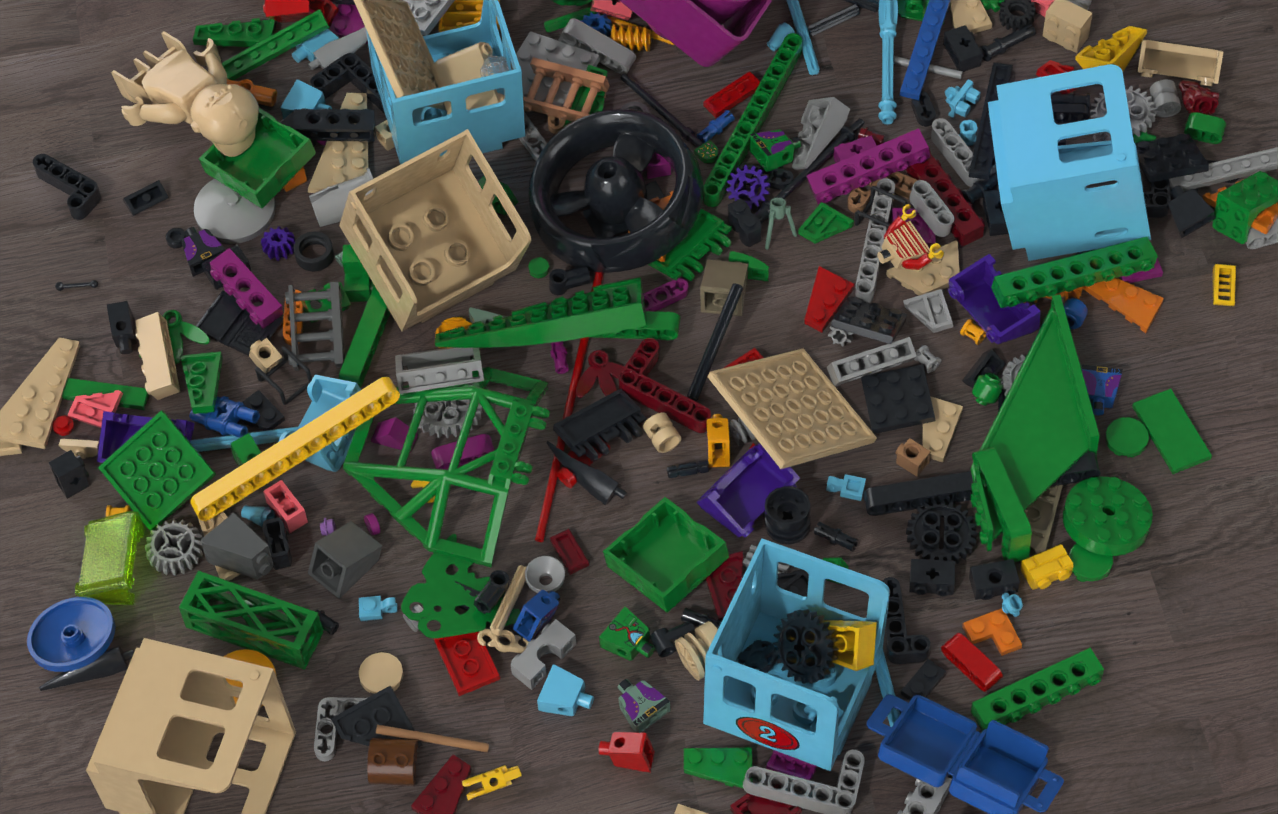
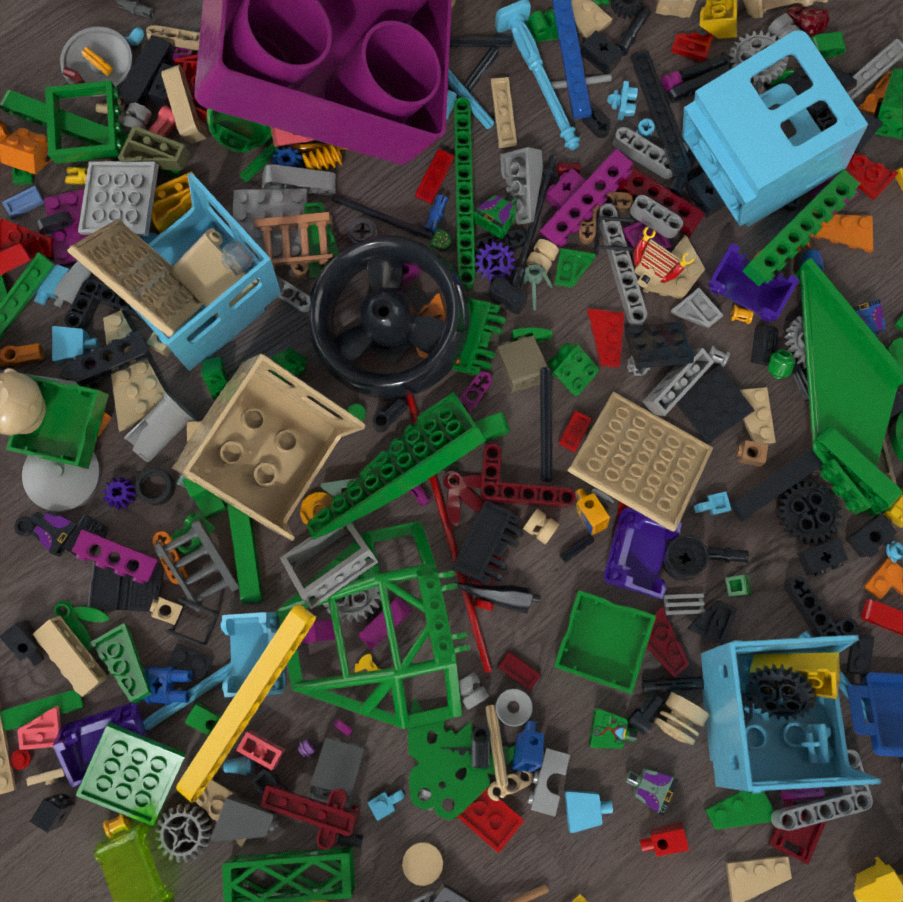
camera: 30 degrees left, 20 degrees up
(315, 573) = (329, 816): none -> dark red piece
(512, 543) = (472, 691): none -> light grey wheel
(773, 312) = (572, 368): none -> green bracket
(801, 200) = (543, 254): none -> tan wheel
(833, 64) = (503, 112): none -> tan plate
(1175, 253) = (871, 176): none -> red wing

